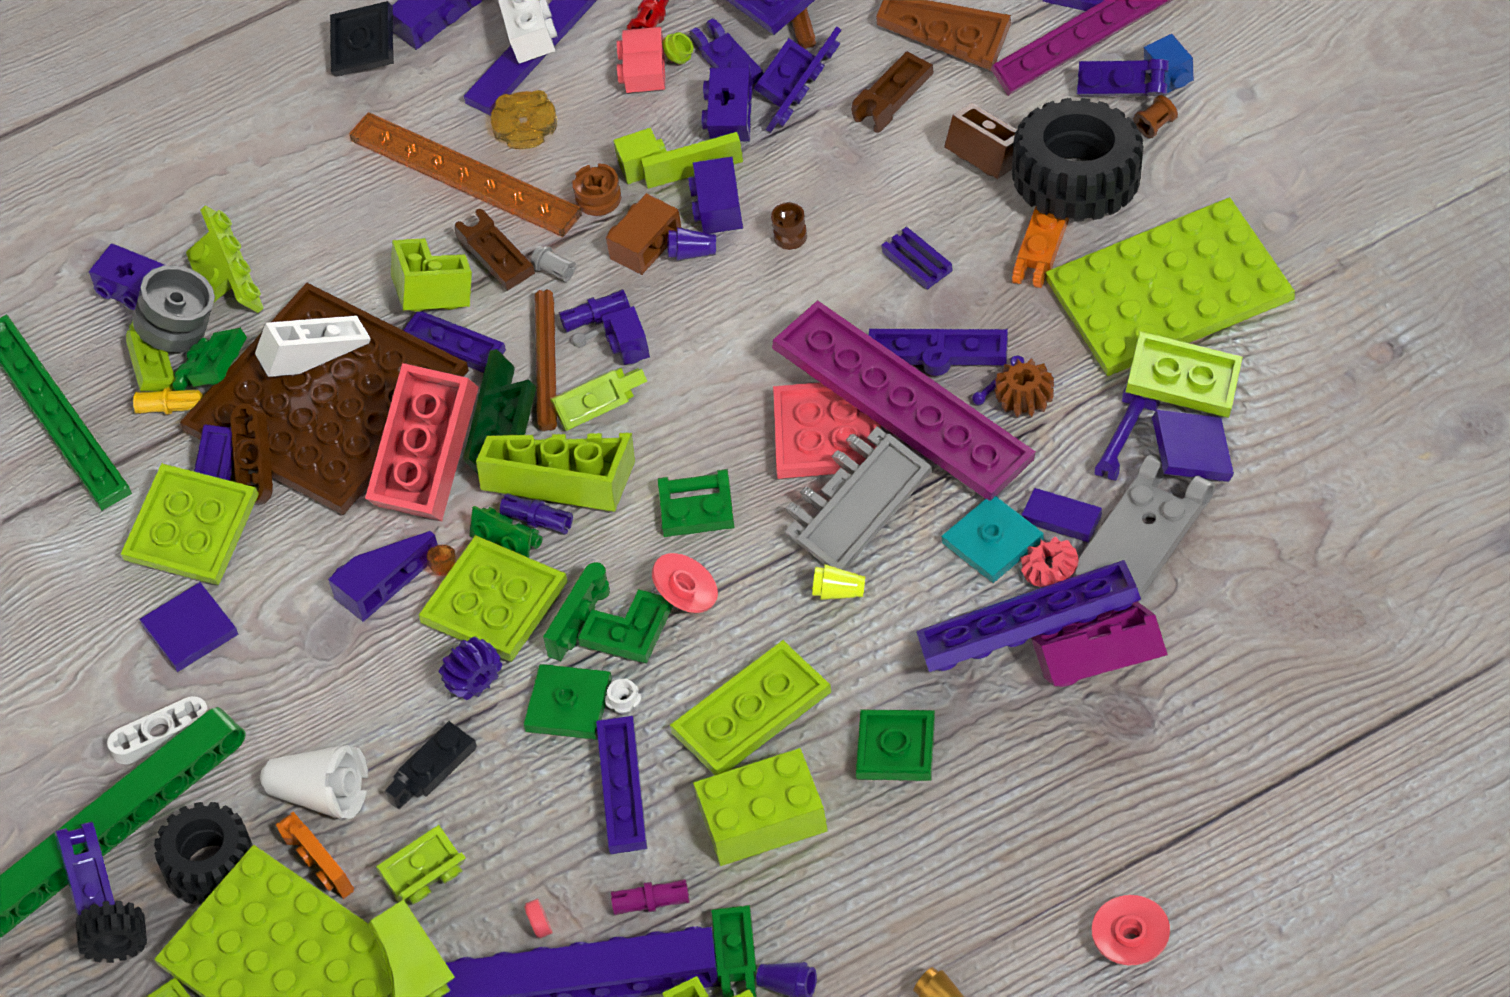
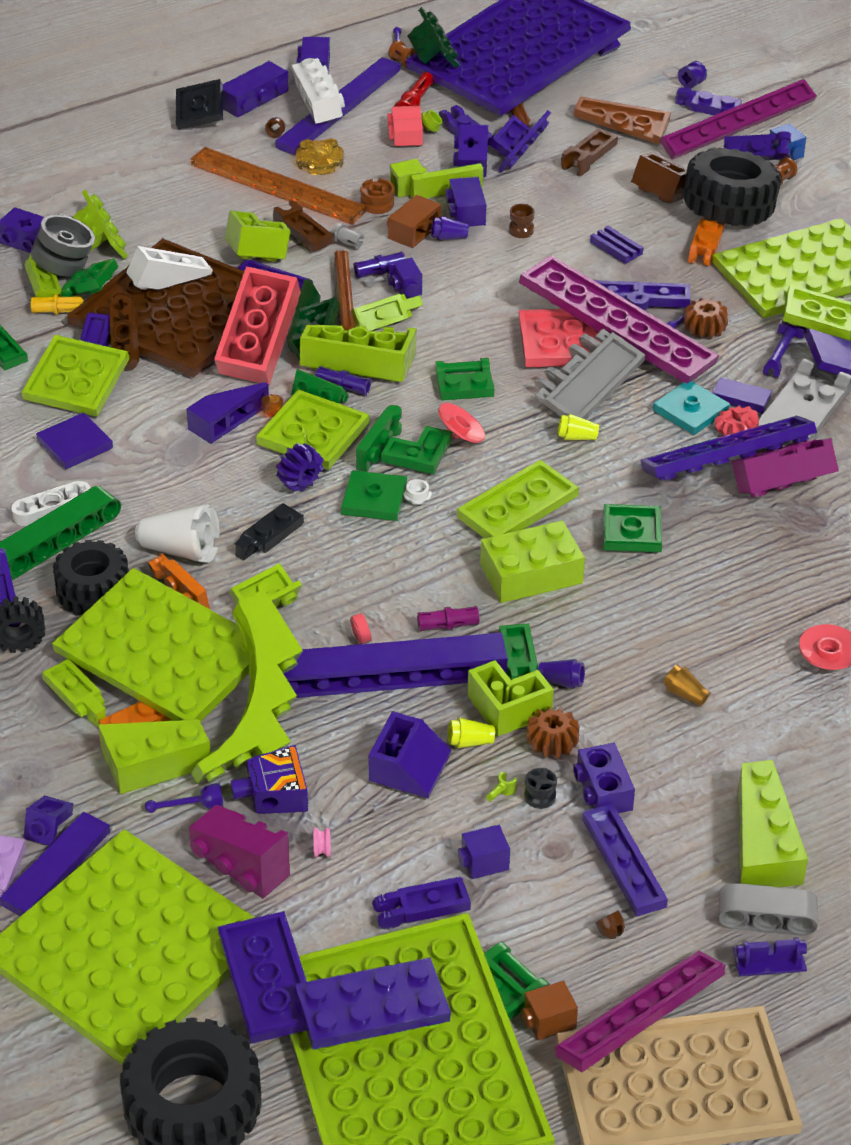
camera: 10 degrees left, 10 degrees down
(469, 76) = (279, 131): none -> reddish brown hinge
(621, 785) = (421, 547): dark purple plate -> none

